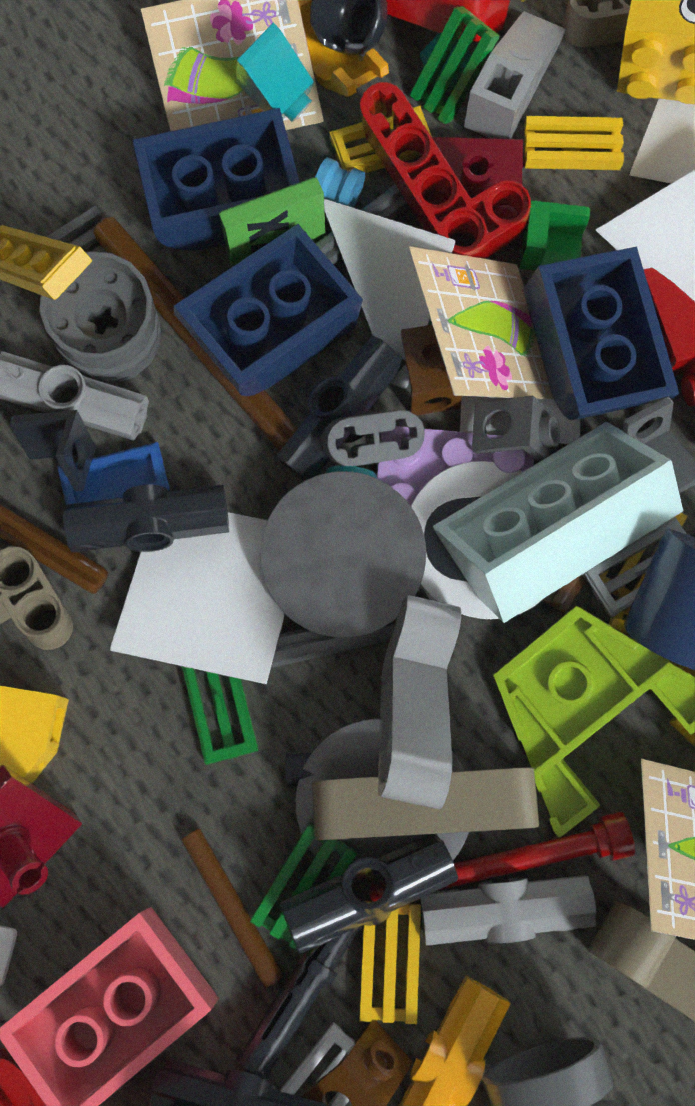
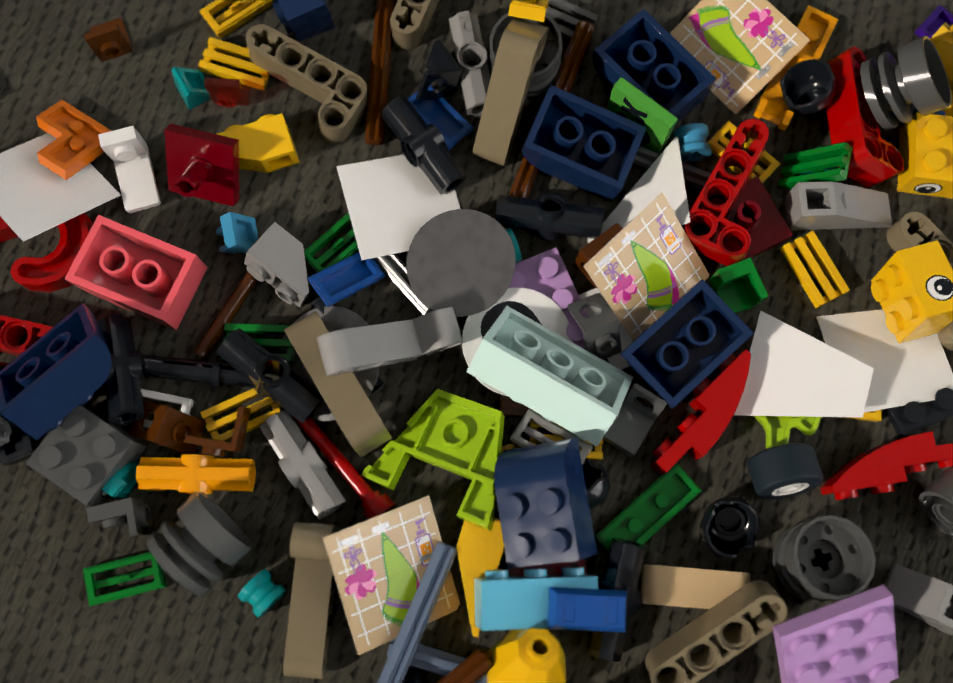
camera: 60 degrees right, 0 degrees up
(130, 836) = (238, 233): none -> dark azure tile
(147, 358) = (508, 88): none -> dark tan beam
(211, 795) = (281, 263): none -> light grey slope
(274, 75) = (735, 65): teal slope -> none
(279, 720) = (345, 278): none -> blue tile
(374, 450) = (532, 246): beam -> none
(429, 1017) = (219, 447): none -> reddish brown bracket
(658, 1056) = (261, 593): none -> teal wheel

